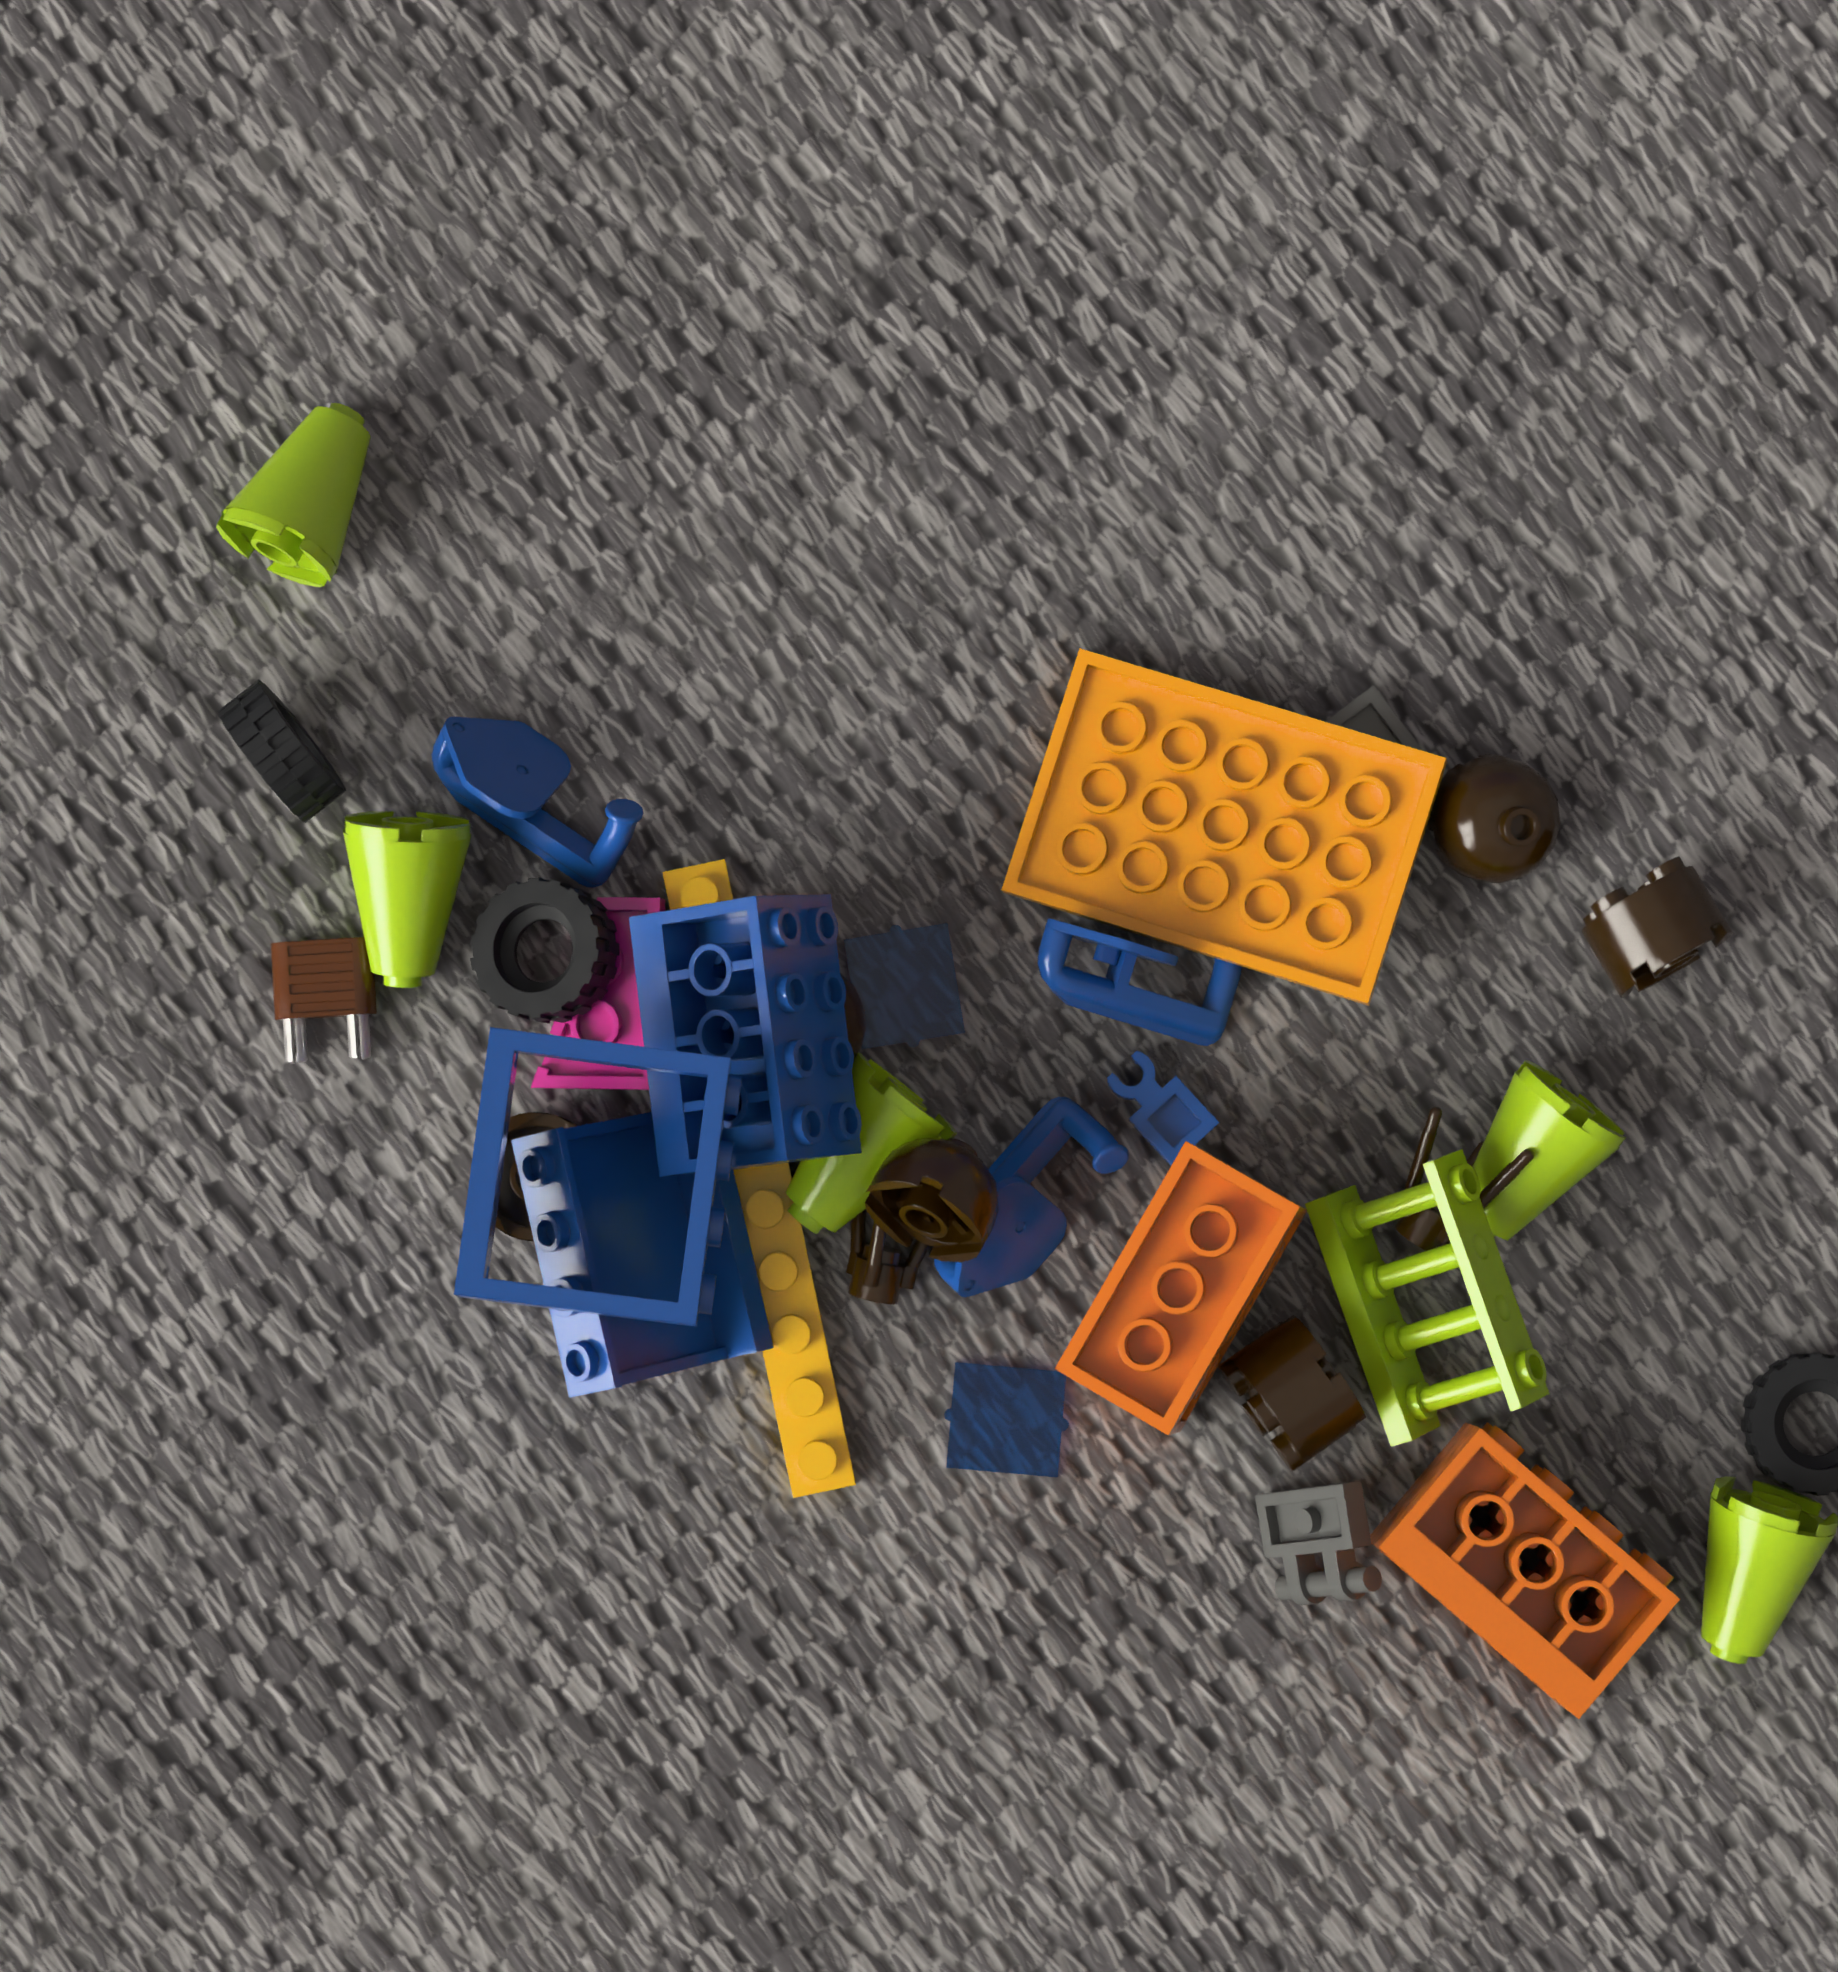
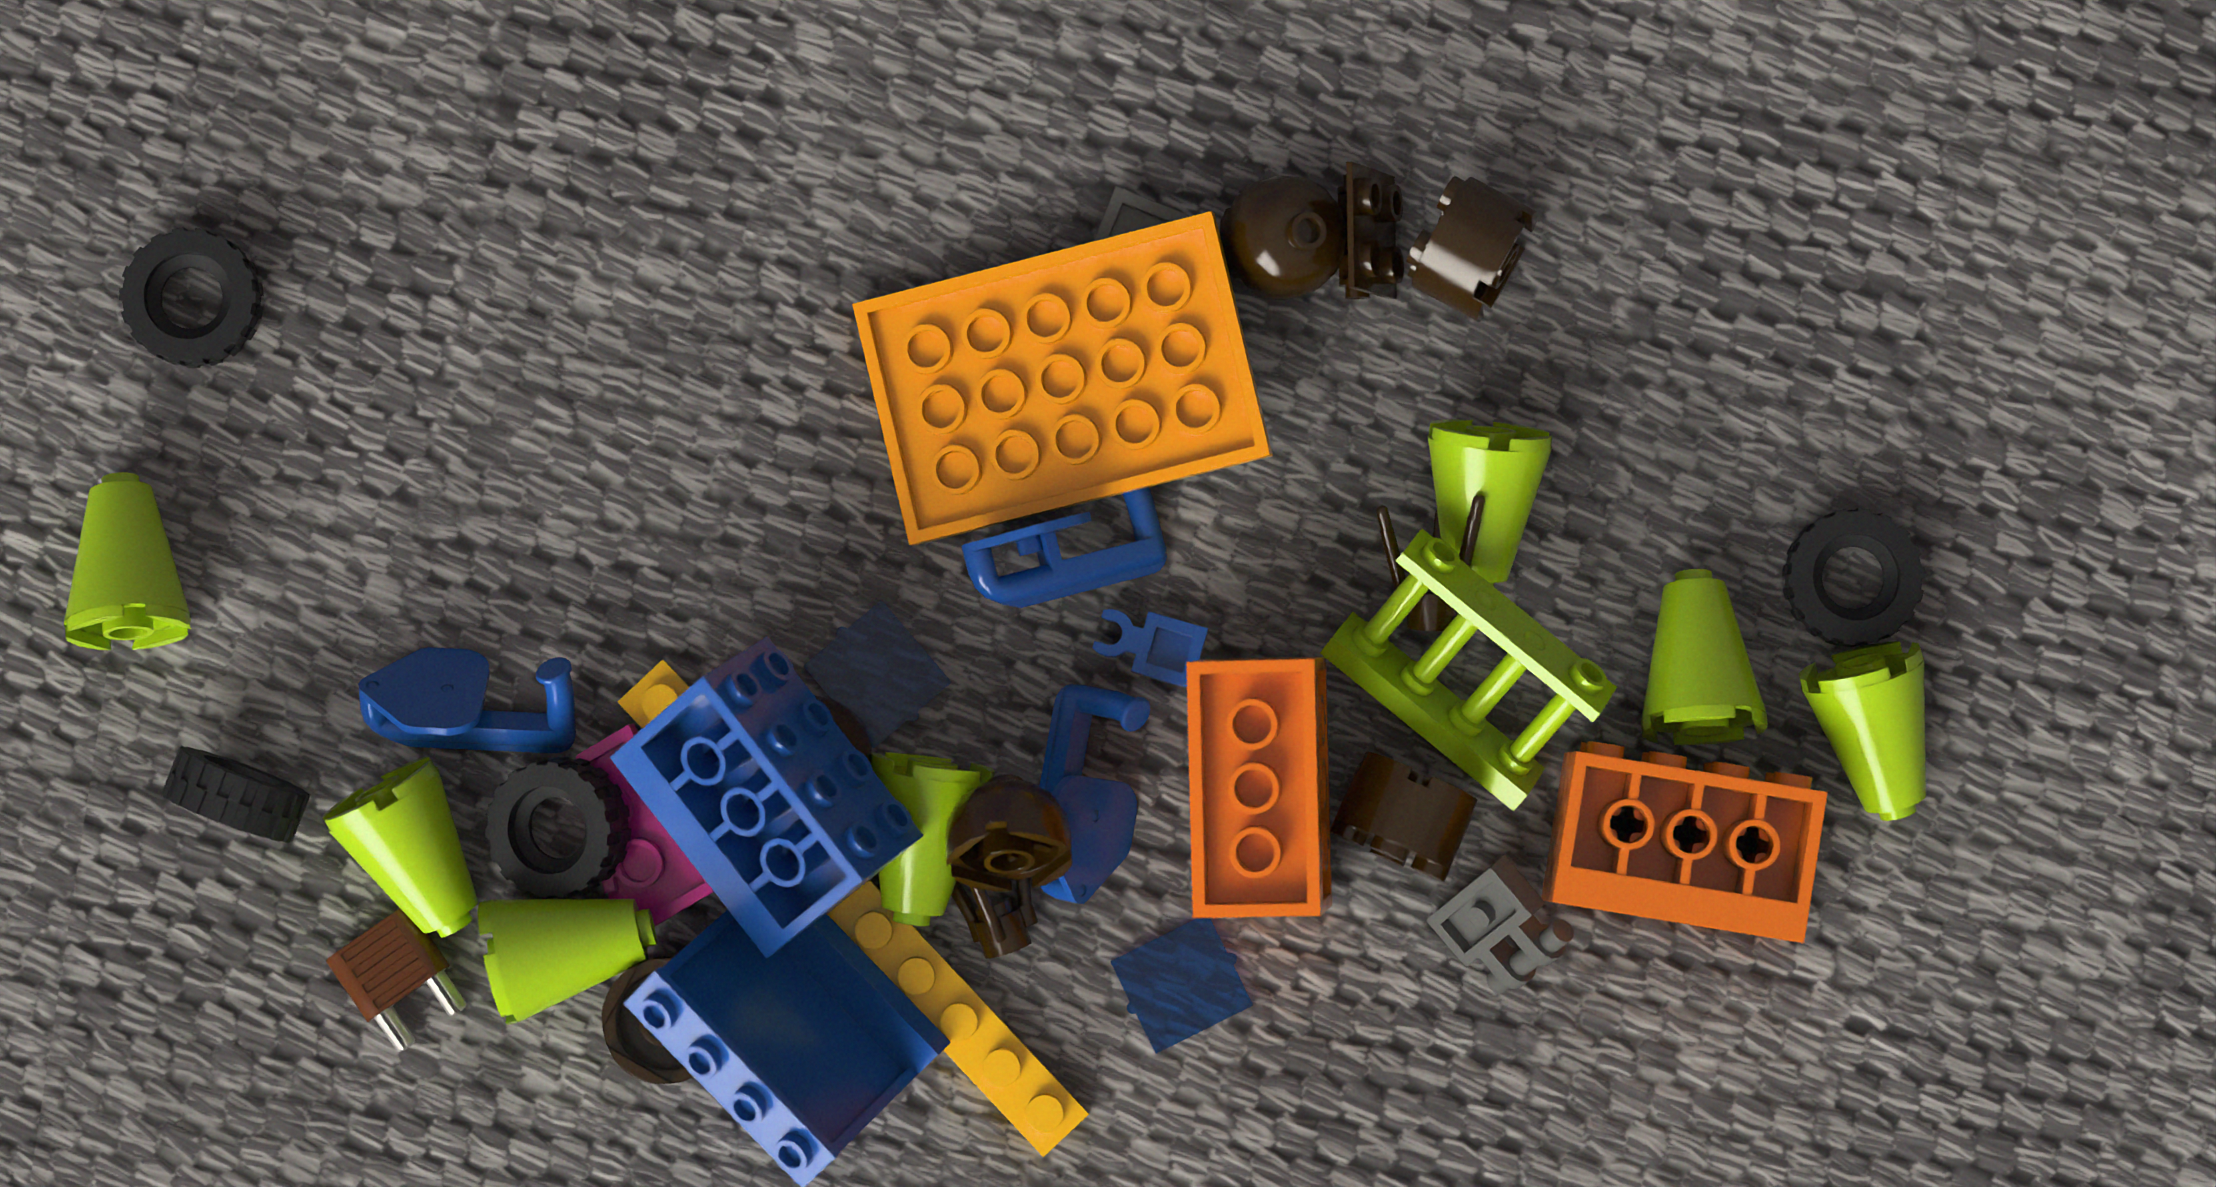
camera: 30 degrees left, 0 degrees up
(449, 1052) = (558, 948): none -> lime cone
(487, 1164) = (613, 1032): blue window -> none
(497, 245) = (144, 288): none -> black tyre
(1588, 839) = (1371, 207): none -> dark brown hinge
(1632, 1420) = (1700, 667): none -> lime cone

